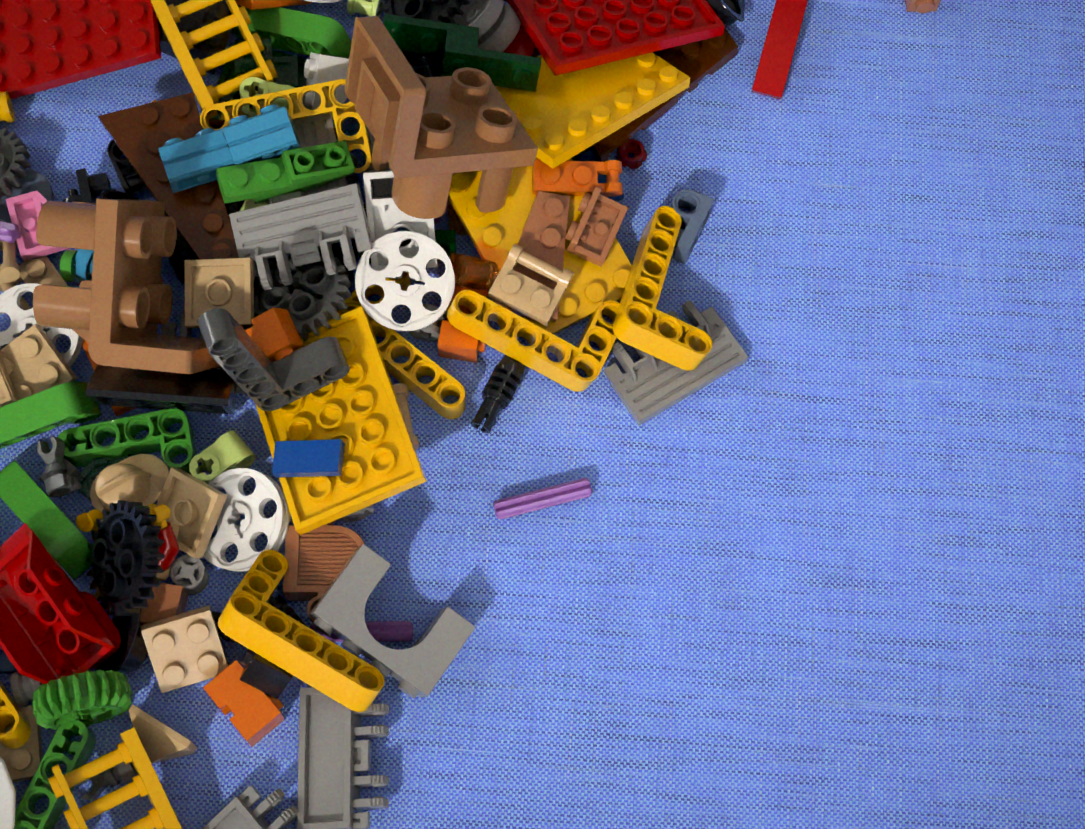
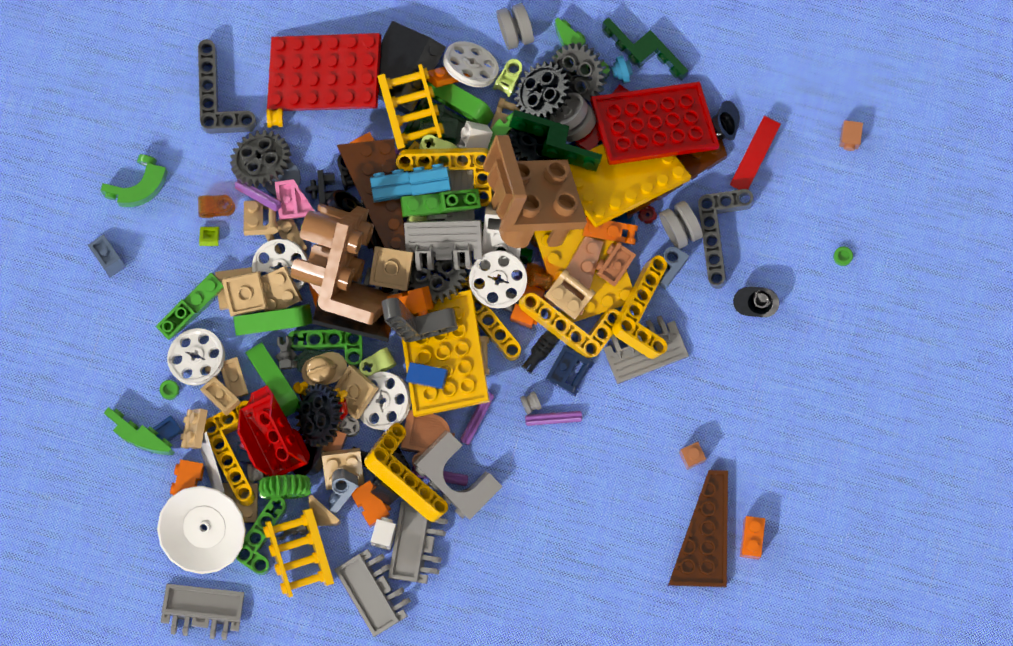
camera: 10 degrees right, 10 degrees up
(188, 686) = (343, 490): none -> sand blue plate
(275, 751) = (383, 533): none -> white brick
(409, 525) = (475, 421): none -> medium lavender axle
(498, 478) = (530, 402): none -> light grey wheel
(543, 412) = (564, 366): none -> dark blue plate
(690, 153) = (681, 225): none -> light grey wheel
(744, 160) = (714, 231): none -> dark grey beam
(794, 516) = (692, 455): none -> nougat brick
(840, 250) = (756, 302): none -> black piece
(851, 668) = (704, 548): none -> reddish brown wing
(930, 635) = (752, 537): none -> orange brick
(957, 165) = (843, 256): none -> bright green tile

